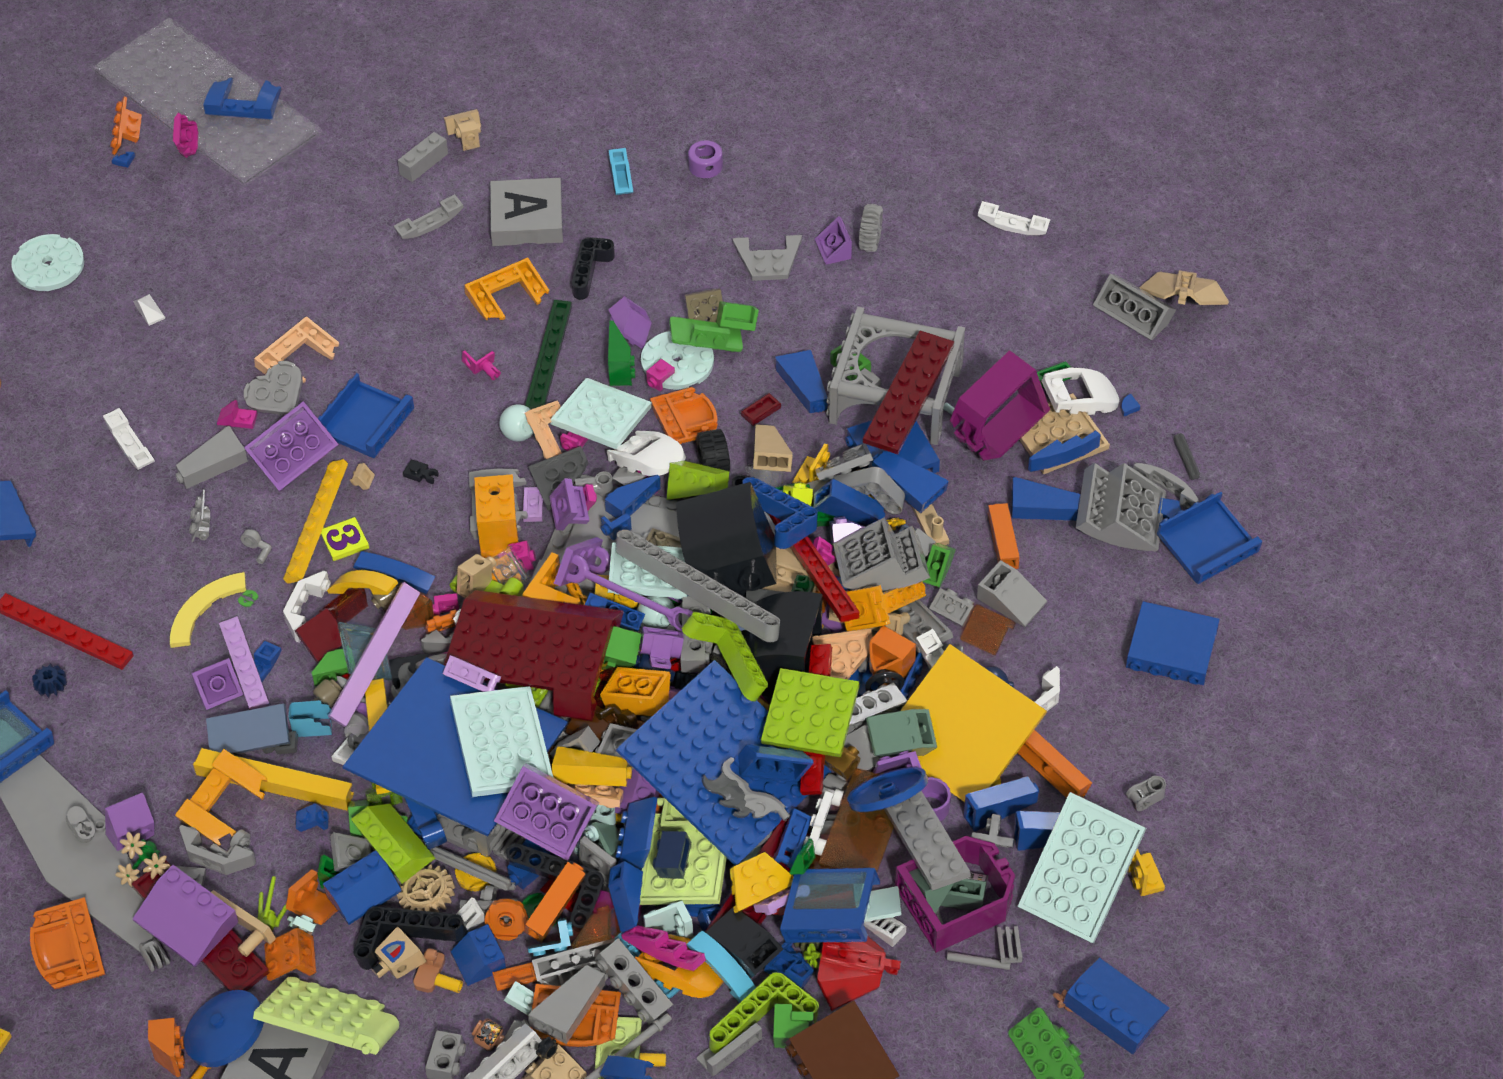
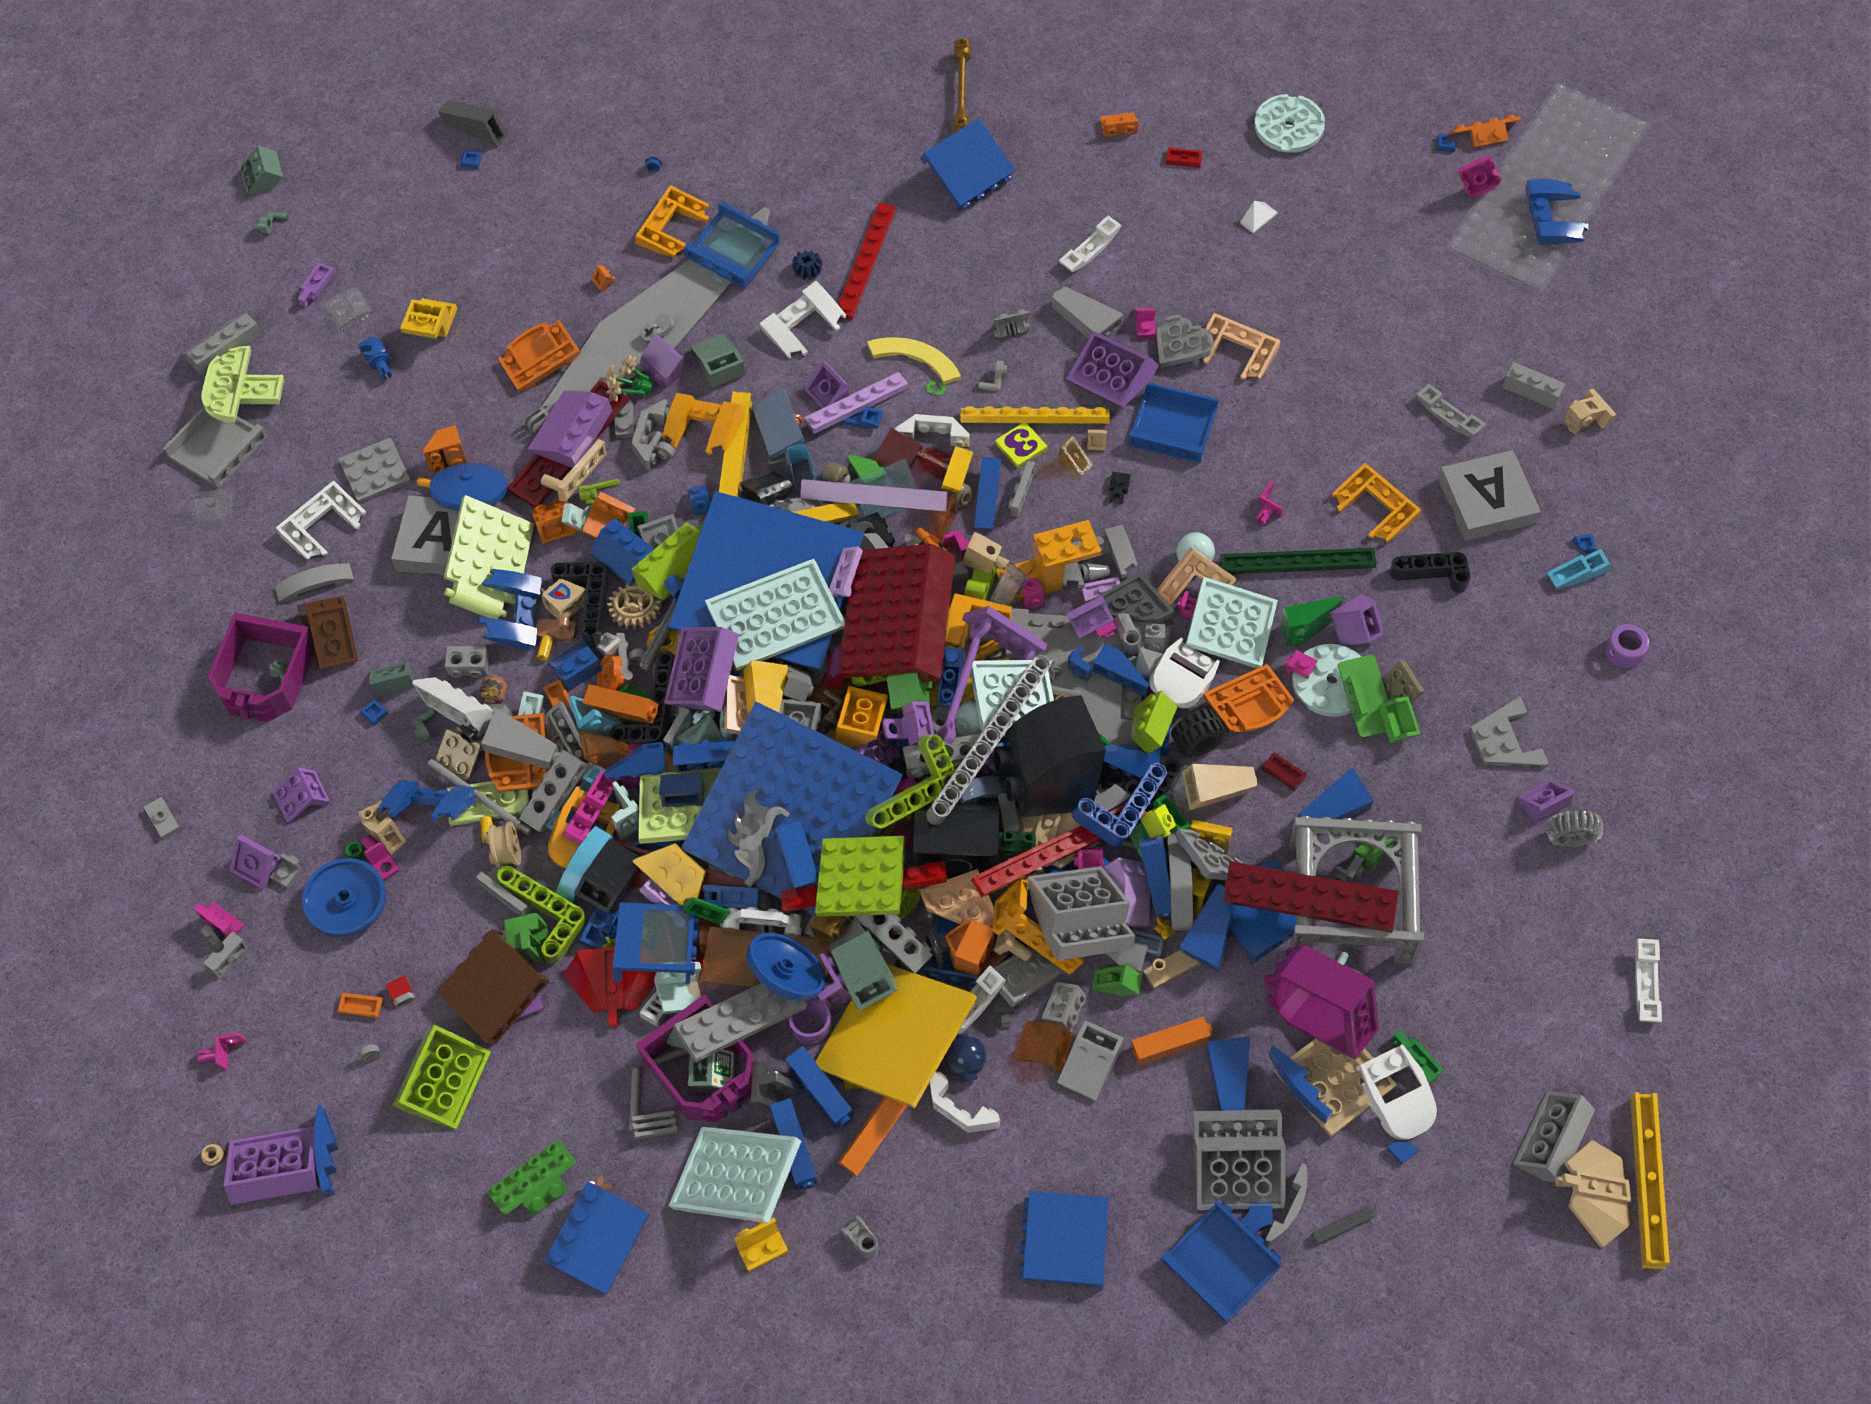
camera: 80 degrees right, 10 degrees up
(53, 351) = (1184, 160): none -> red tile
(119, 719) = (814, 298): none -> white wedge
(141, 773) = (718, 360): none -> sand green slope
(323, 753) = (766, 487): none -> black slope
(376, 498) = (1073, 457): none -> clear yellow slope
(399, 544) = (1021, 489): none -> light grey plate
(426, 1003) = (521, 631): none -> blue wedge
(593, 163) = (1585, 542): none -> blue tile
(598, 465) = (1155, 637): none -> light grey bracket
(682, 1036) = (503, 845): none -> tan wheel
(1180, 258) = (1649, 1181): none -> yellow tile

